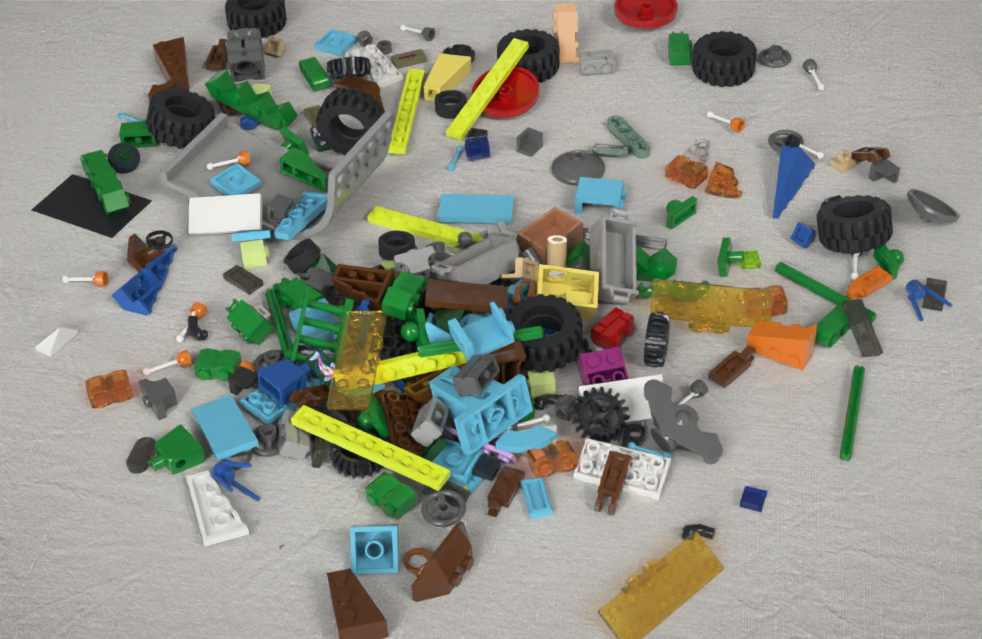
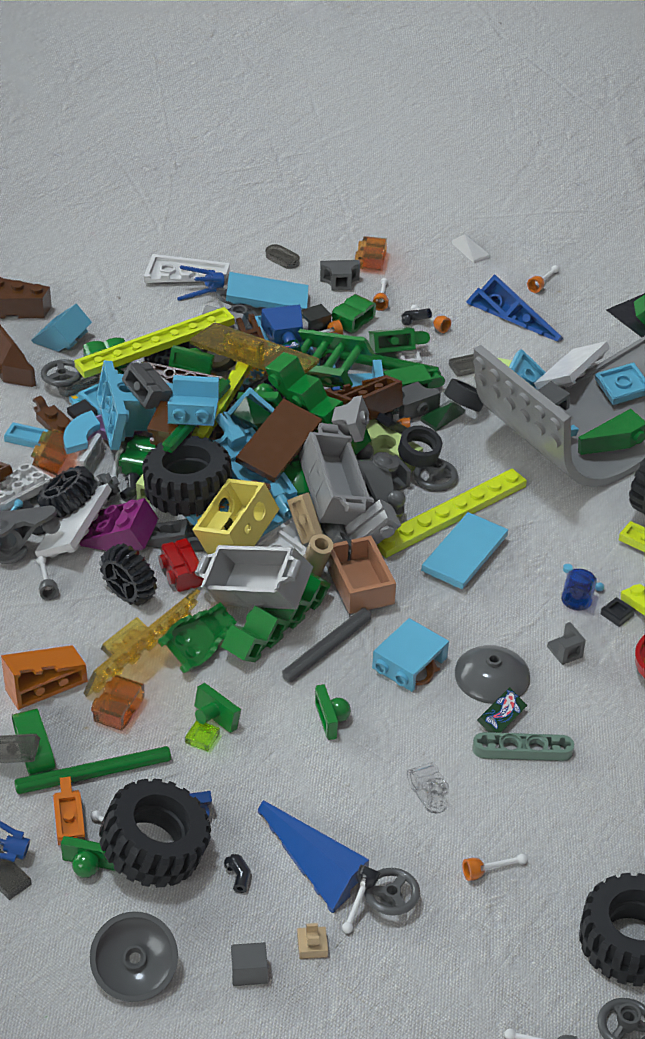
camera: 115 degrees right, 0 degrees up
(140, 254) = (557, 309): reddish brown piece -> none
(177, 451) = (266, 264): green torso -> none
(421, 551) = (30, 347): dark orange piece -> none
(686, 171) = (397, 756): clear orange brick -> none
(722, 182) = (361, 787): clear orange slope -> none
(732, 367) = (51, 624): reddish brown plate -> none
(871, 154) = (288, 956): reddish brown hinge -> none

